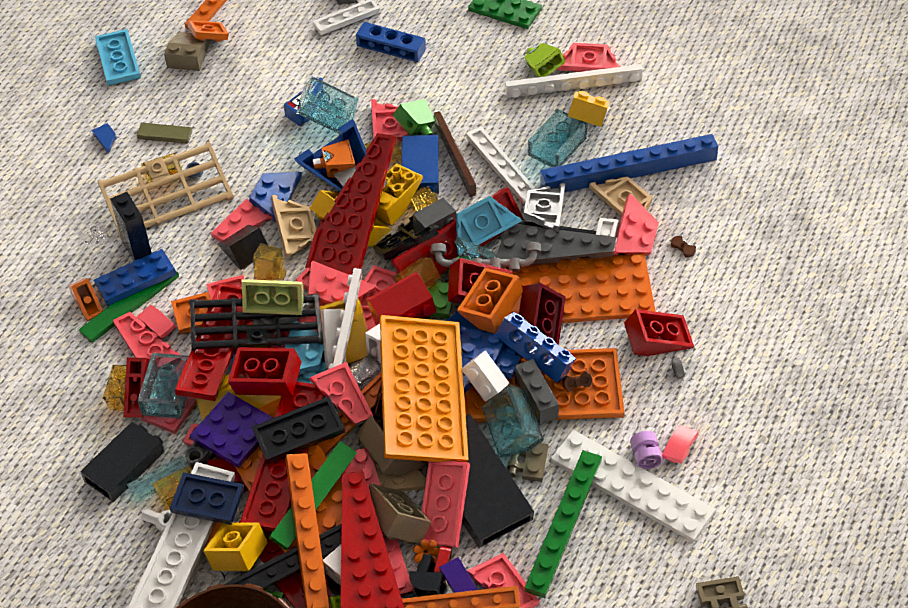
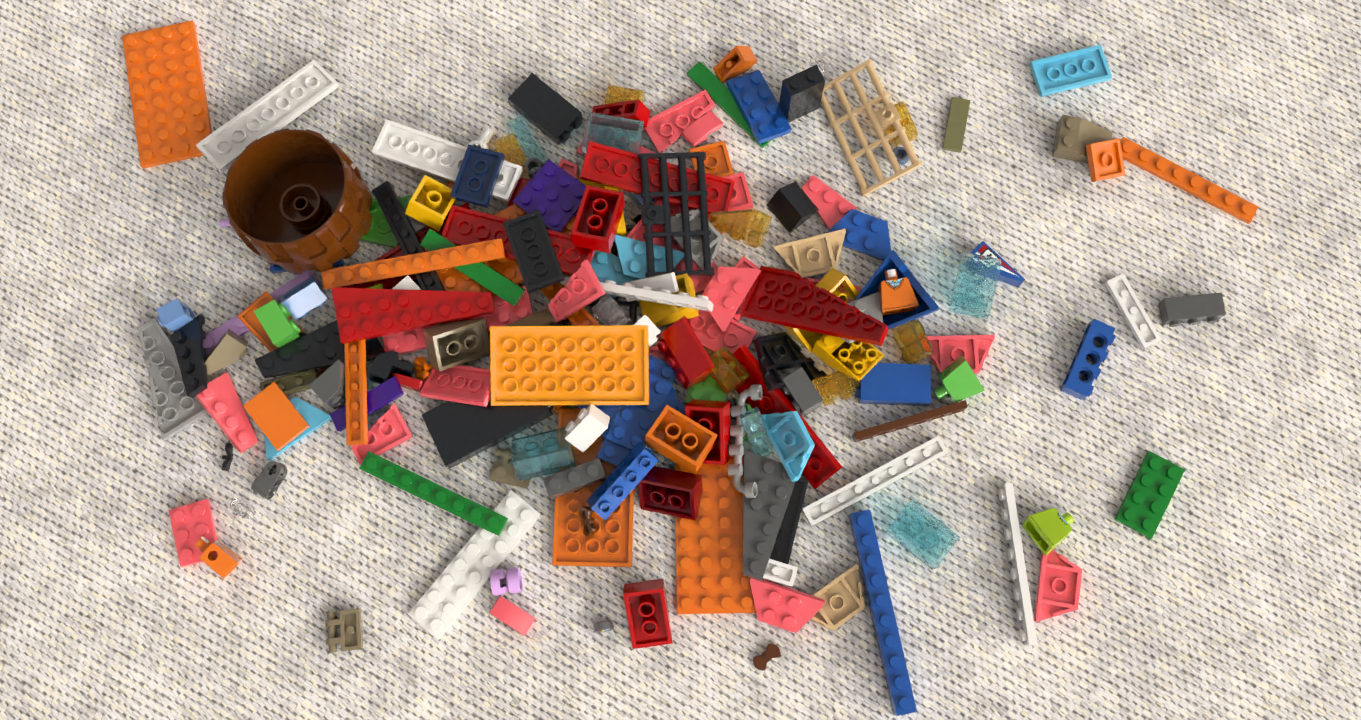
camera: 95 degrees right, 25 degrees up
(105, 136) = (953, 68): blue tile -> none
(272, 297) = (695, 226): yellowish green slope -> none
(545, 206) = (818, 510): light grey wing -> none
(588, 108) = (963, 573): yellow slope -> none

